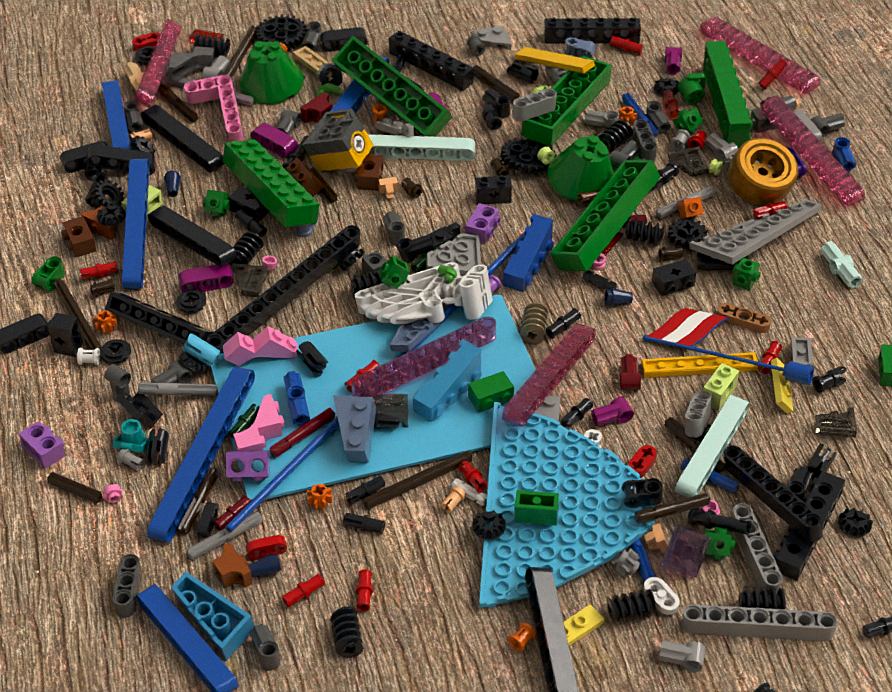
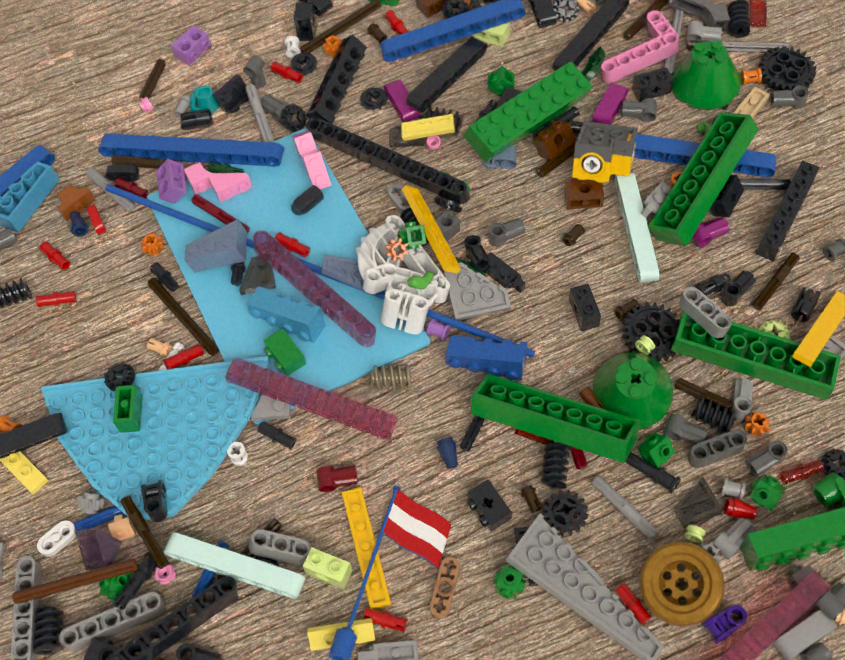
camera: 85 degrees right, 15 degrees up
(127, 585) = (54, 137): dark grey beam -> none
(128, 360) = (286, 72): none -> red pin
(172, 182) = (526, 43): dark blue cone -> none
(201, 350) = (298, 116): medium azure arm -> none
(219, 137) = (594, 63): none -> dark green tile
(257, 256) = (428, 127): none -> light yellow plate
(263, 107) = (652, 84): none -> black brick
(296, 398) = (255, 199): blue piece -> none
(316, 108) = (670, 127): dark red brick -> none
(328, 296) = (398, 201): none -> light grey beam
(335, 39) = (797, 125): black beam -> none
(364, 522) = (128, 285): black axle -> none
(377, 265) = (432, 230): none -> yellow tile
(388, 186) = (564, 214): light nougat tile -> none
(410, 282) = (390, 247): none -> orange gear
(483, 222) = (531, 302): medium lavender brick -> none
(563, 323) = (400, 405): black pin -> none
(600, 264) = (503, 433): bright pink bush -> none
(616, 410) = (282, 470): magenta piece -> none
(629, 101) = (775, 435): blue axle -> none
(631, 604) = (39, 510): black piece -> none
(647, 463) = (221, 508): red beam -> none
(690, 207) = (605, 509): orange brick -> none
(721, 562) = (75, 581): none -> reddish brown axle

